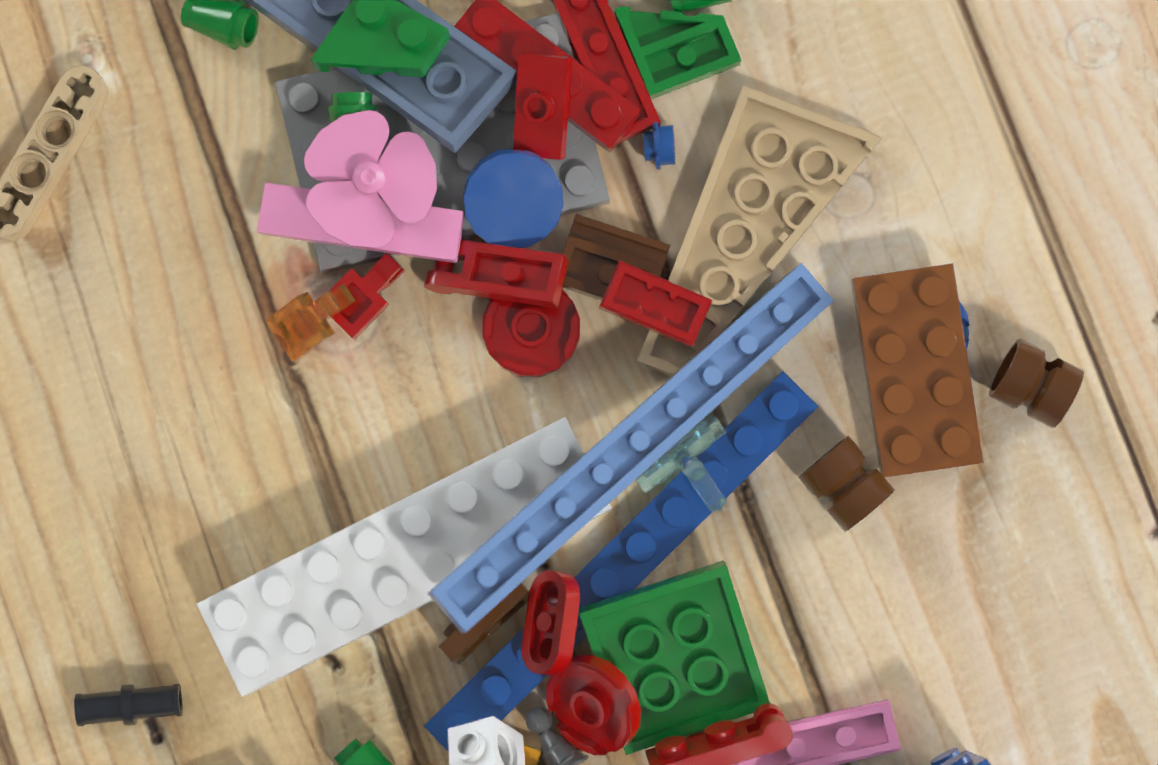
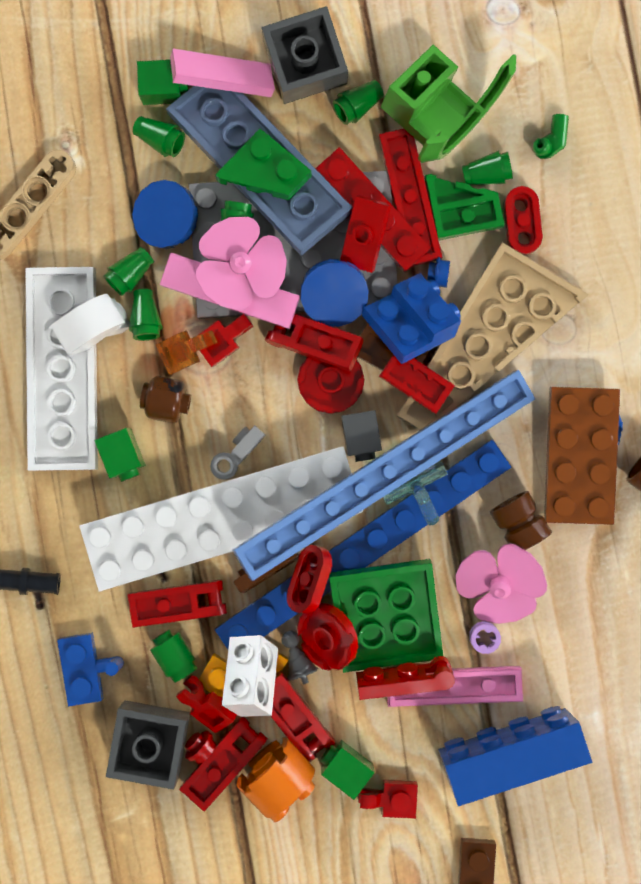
camera: 10 degrees right, 5 degrees up
(133, 381) = (59, 384): none -> white plate
(165, 305) = (90, 324): none -> white brick
(207, 222) = (128, 271): none -> green cone
(240, 490) = (120, 454): none -> green brick
(242, 283) = (144, 320): none -> green cone
(247, 131) = (165, 214): none -> blue tile
(292, 398) = (165, 399): none -> reddish brown head
(359, 697) = (175, 603): none -> red plate
(422, 441) = (245, 442): none -> light grey plate
(590, 398) = (361, 435): none -> dark grey brick
(634, 214) = (413, 318): none -> blue plate
(768, 51) = (524, 221): none -> red plate
(824, 680) = (481, 647): none -> lavender bush
(851, 579) = (511, 585): none -> bright pink piece

